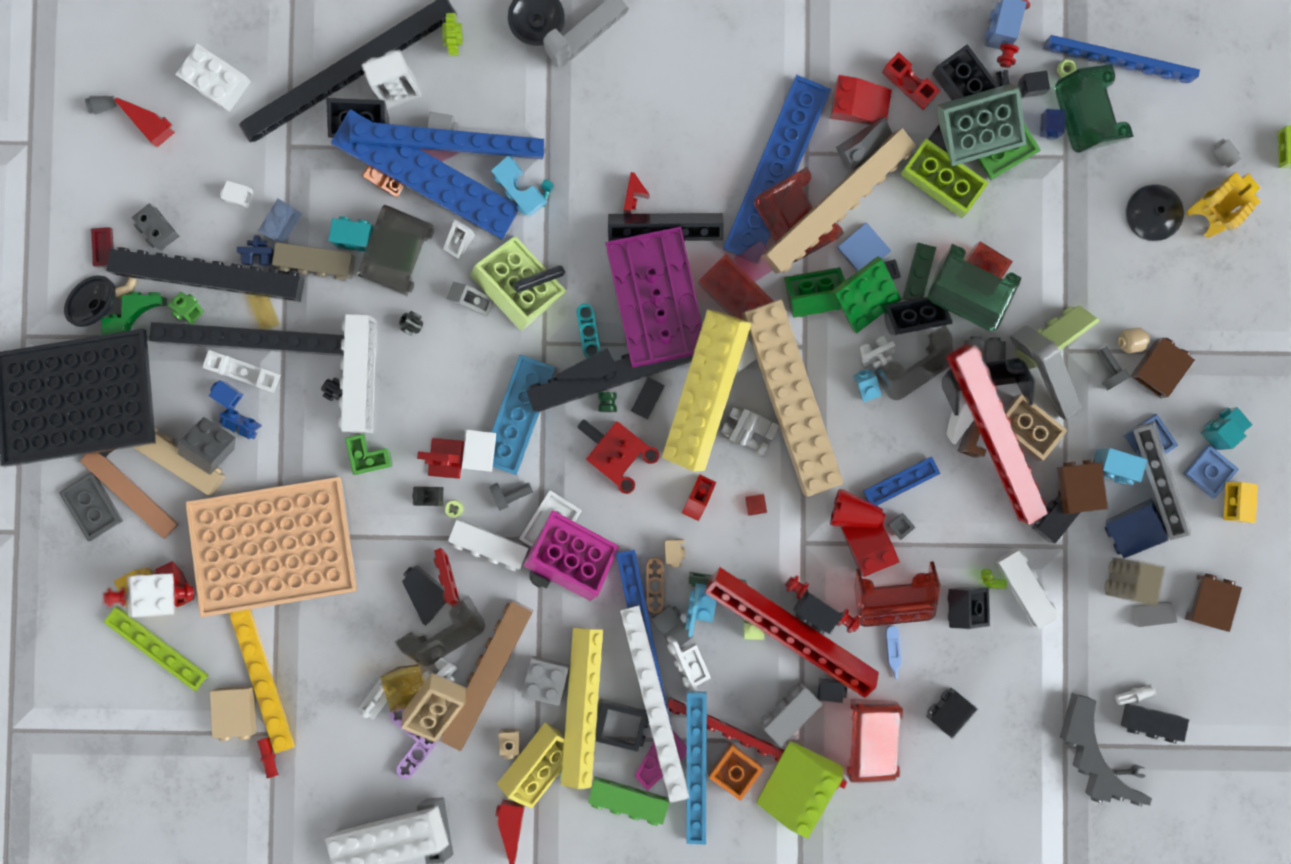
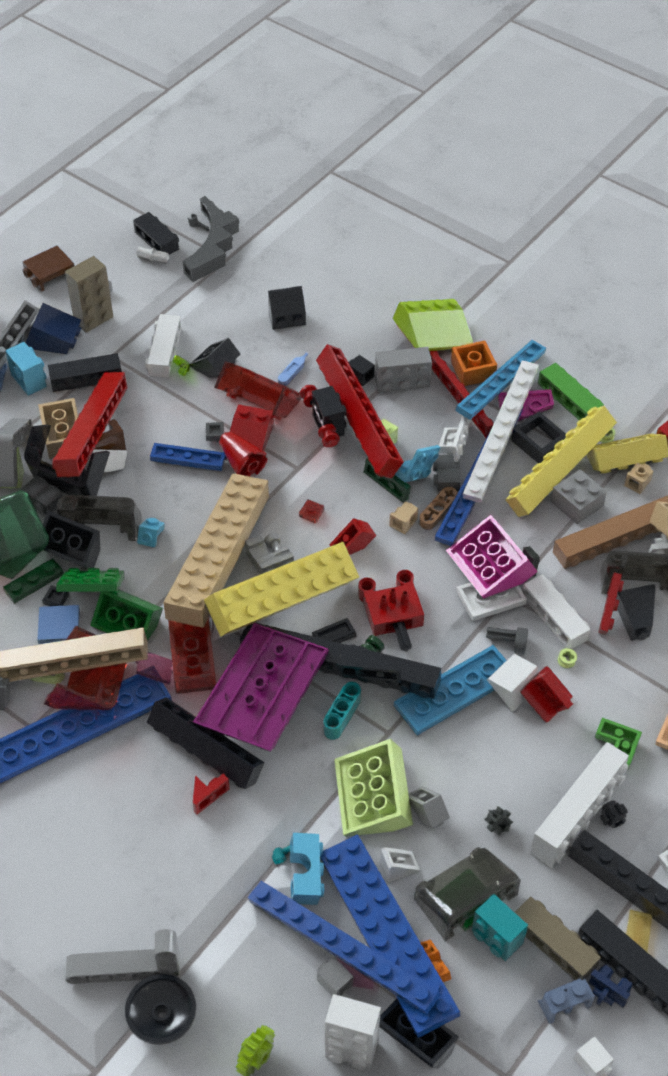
camera: 145 degrees left, 35 degrees down
(427, 496) = (583, 678): pearl dark grey bracket -> none
(539, 278) = (351, 775): black axle -> none
(874, 741) = (356, 324): clear red windscreen -> none
(879, 356) = (129, 546): white hips -> none
(1082, 487) = (65, 366): reddish brown brick -> none

